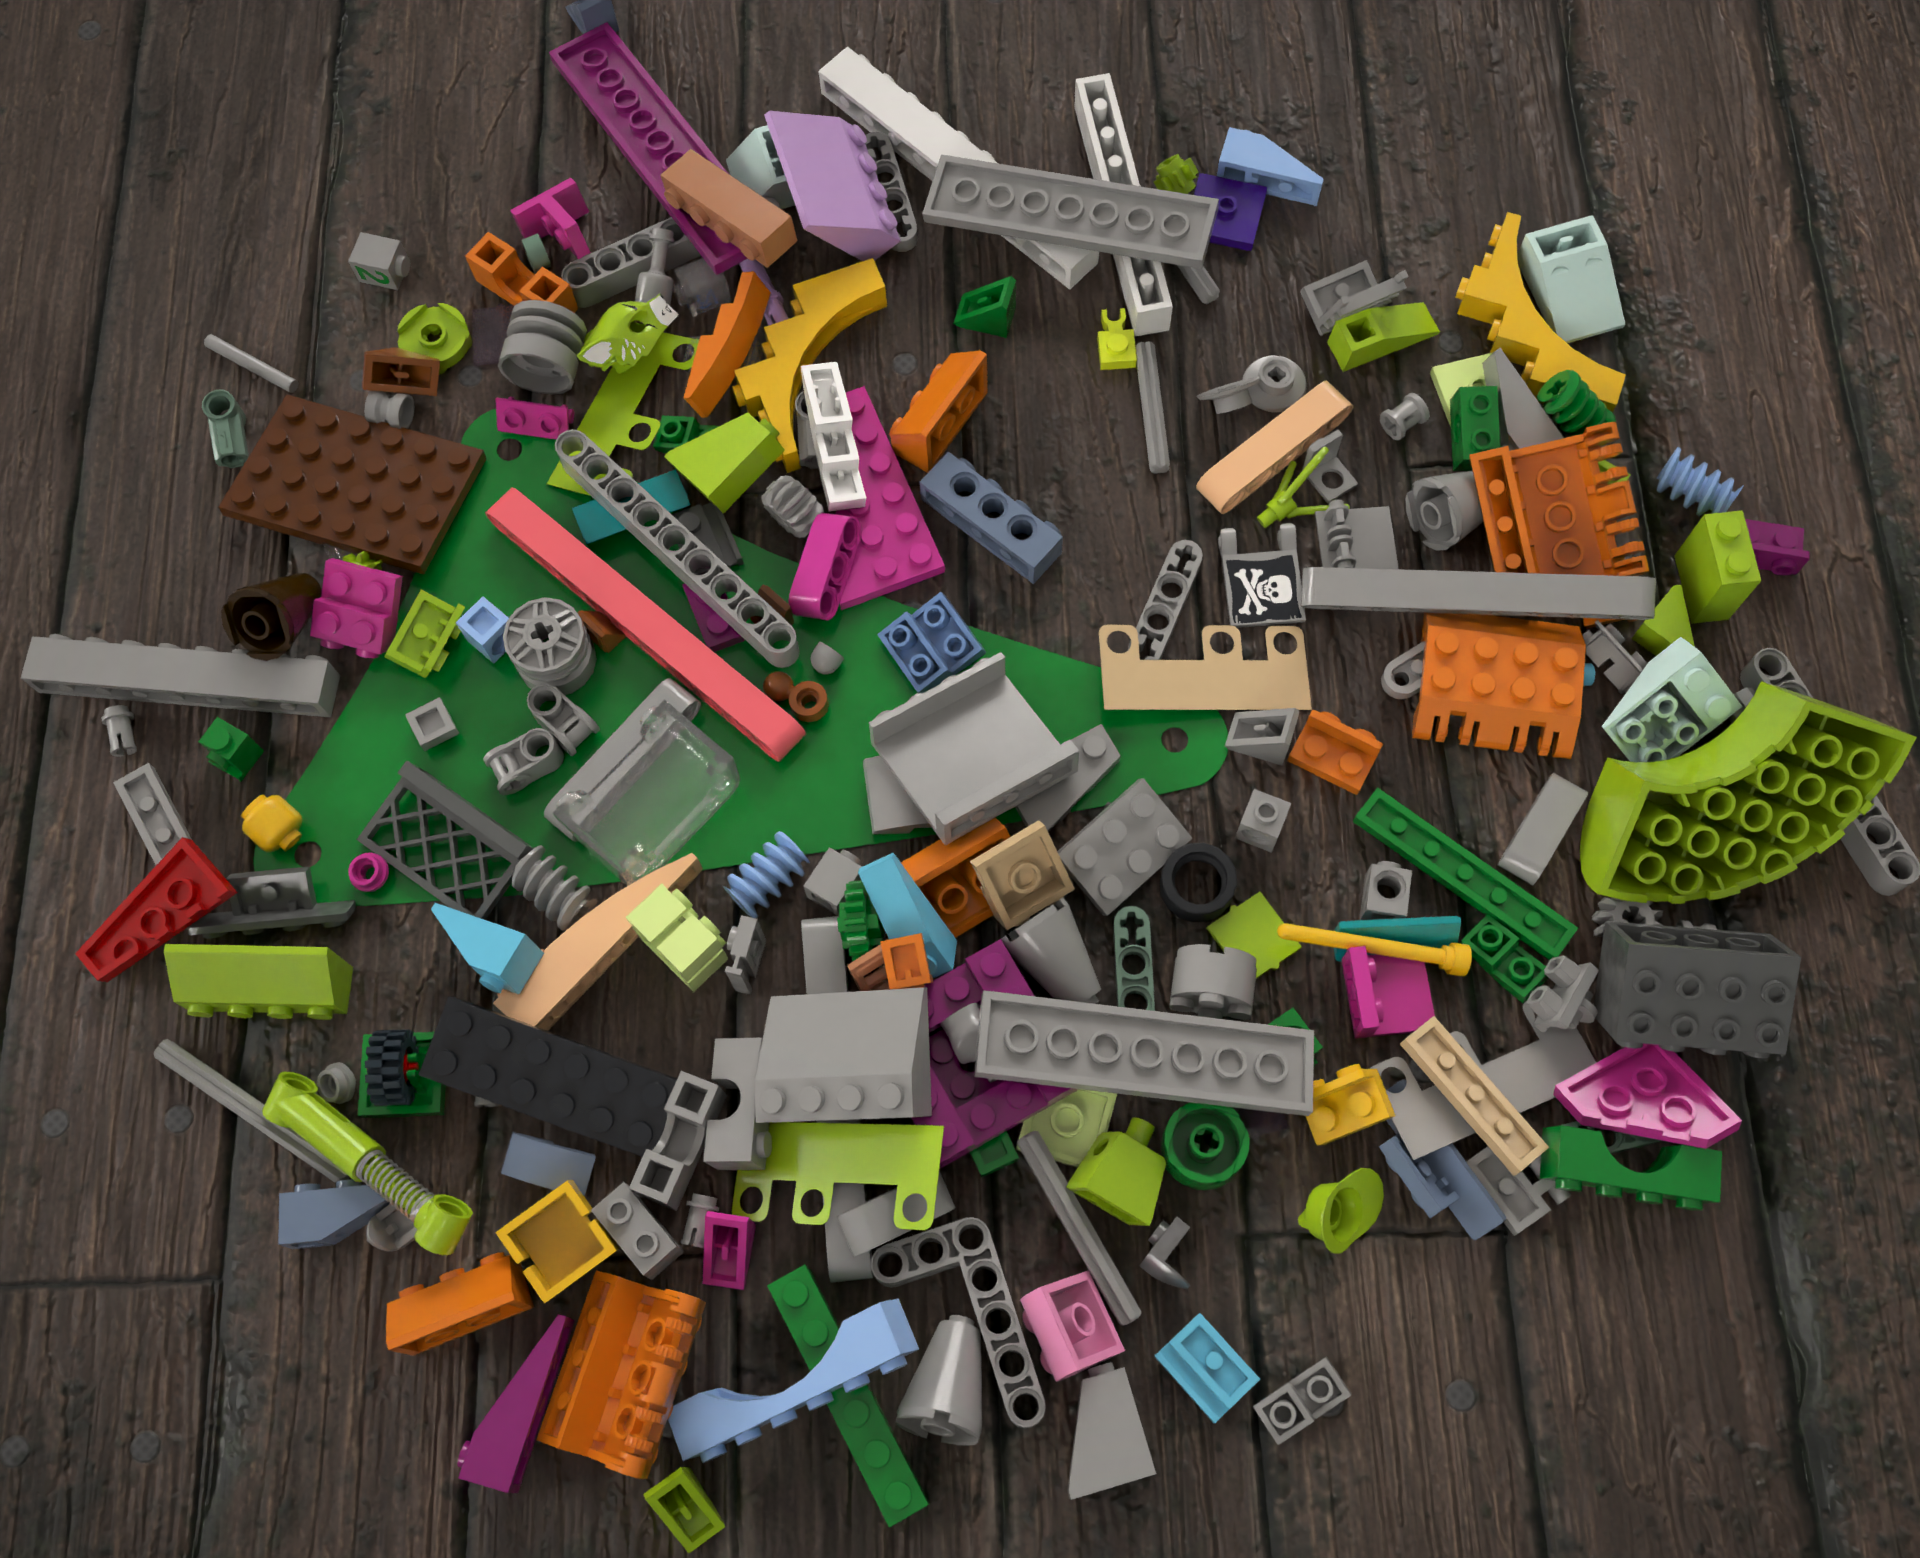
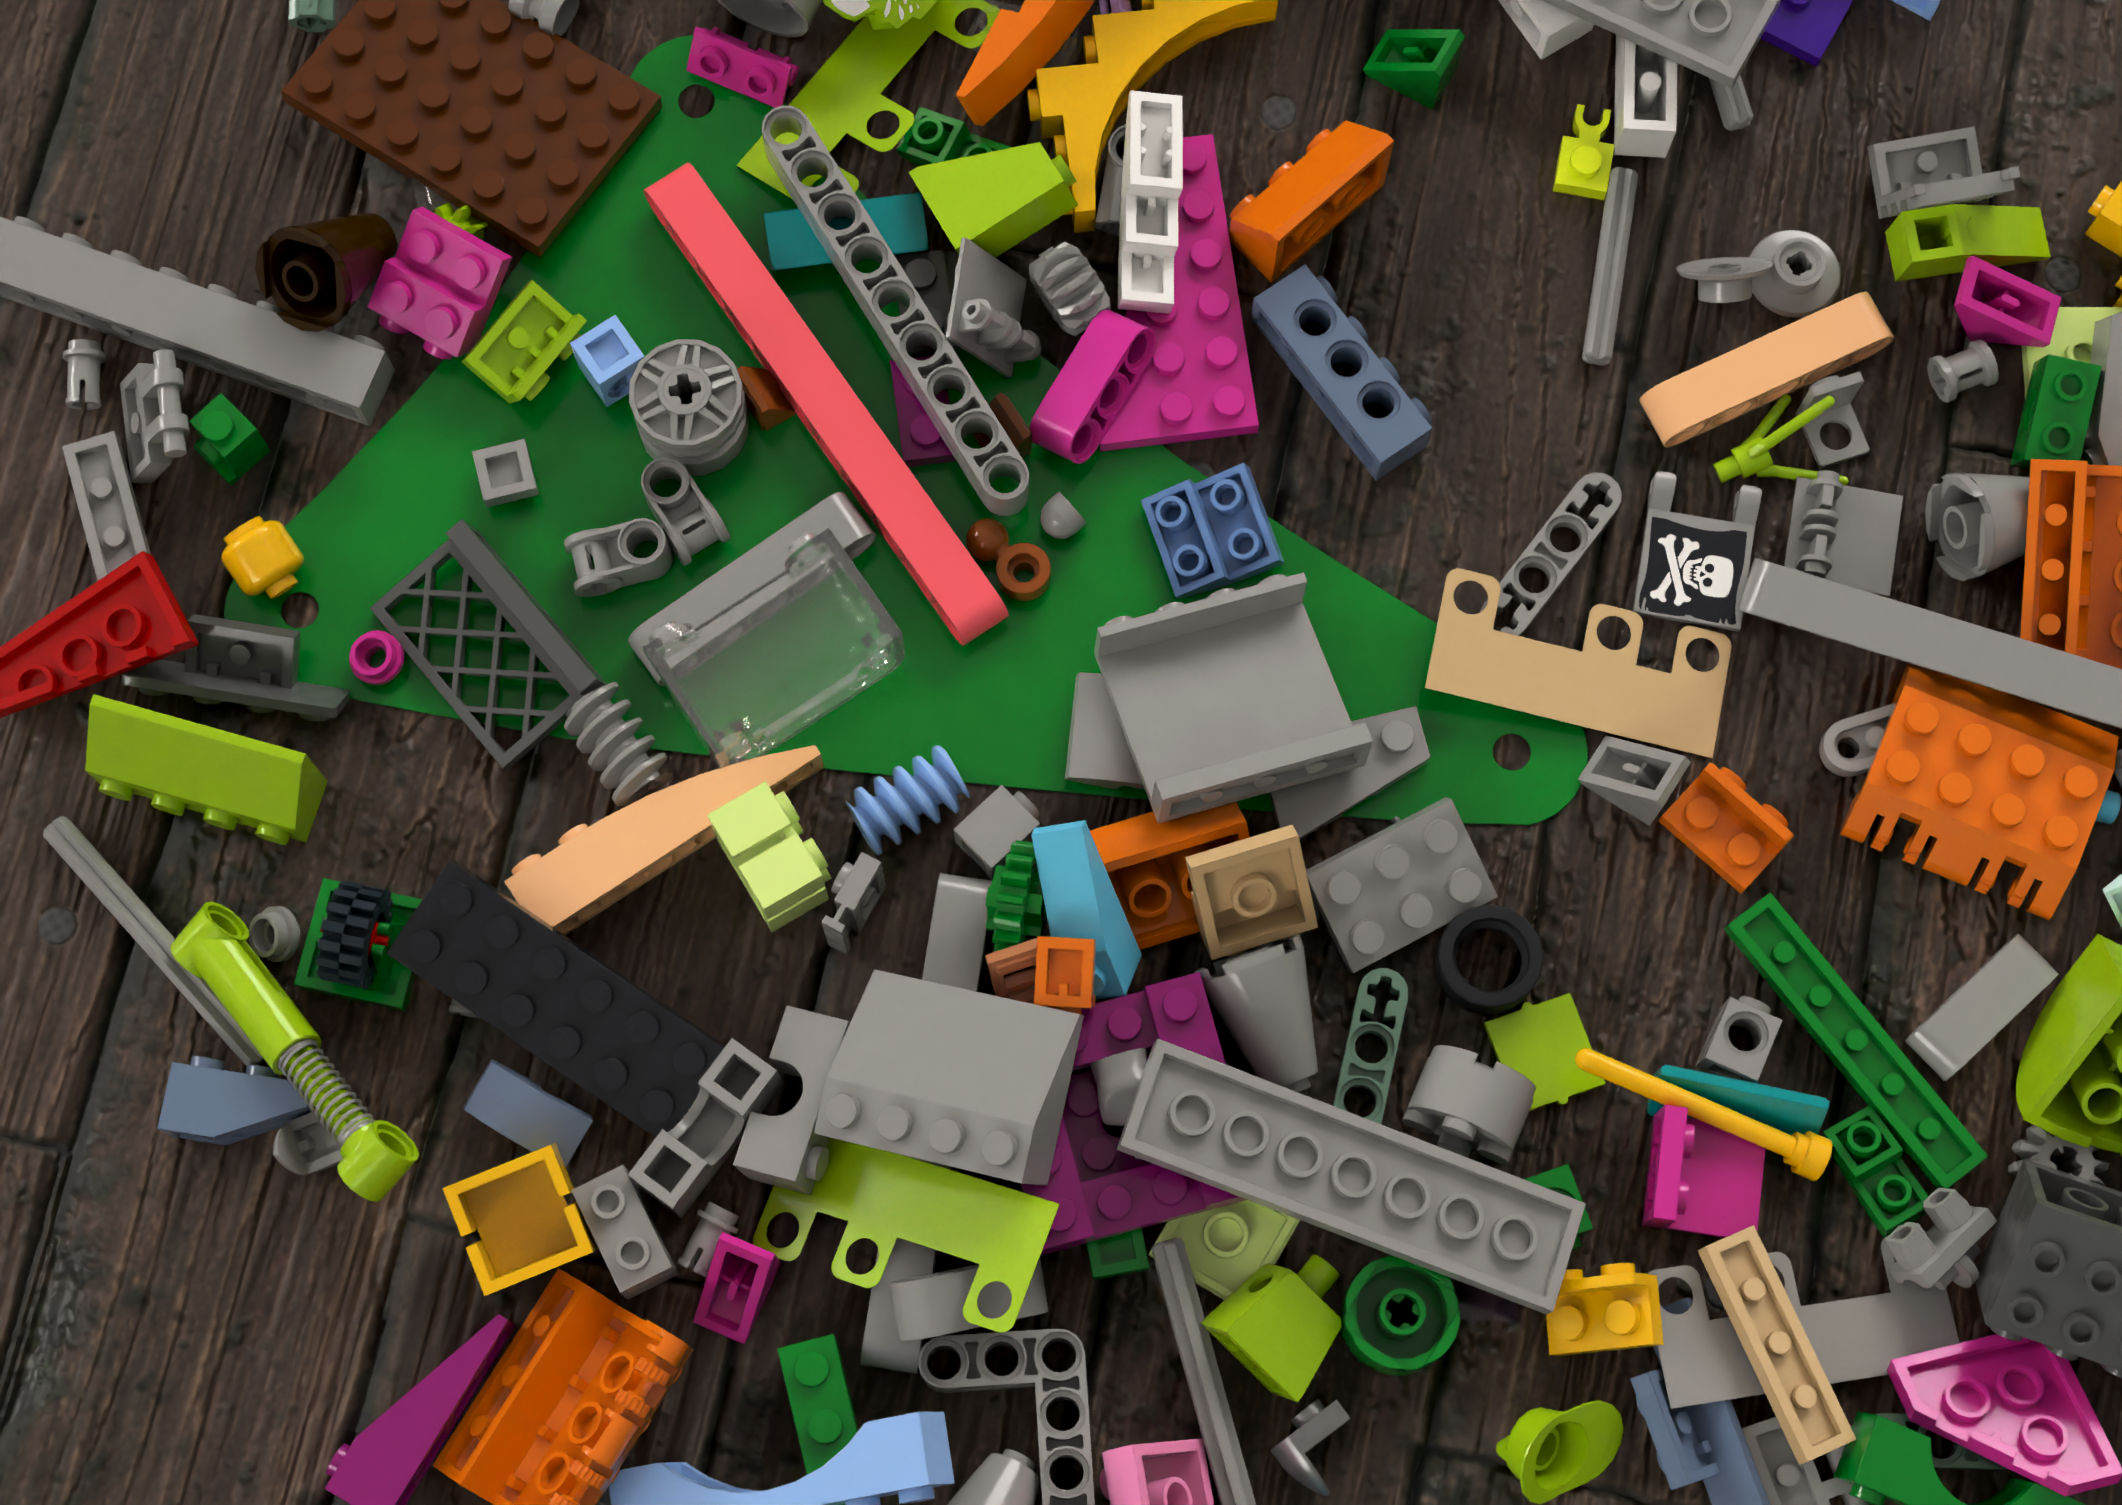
camera: 10 degrees right, 5 degrees up
(174, 745) = (154, 416): none -> light grey plate
(456, 1305) = (370, 1266): orange slope -> none
(494, 951) = (521, 813): medium azure slope -> none
(741, 533) = (989, 310): none -> light grey hinge
(1262, 820) = (1599, 898): light grey brick -> none
(1420, 367) = (2004, 307): none -> dark pink slope

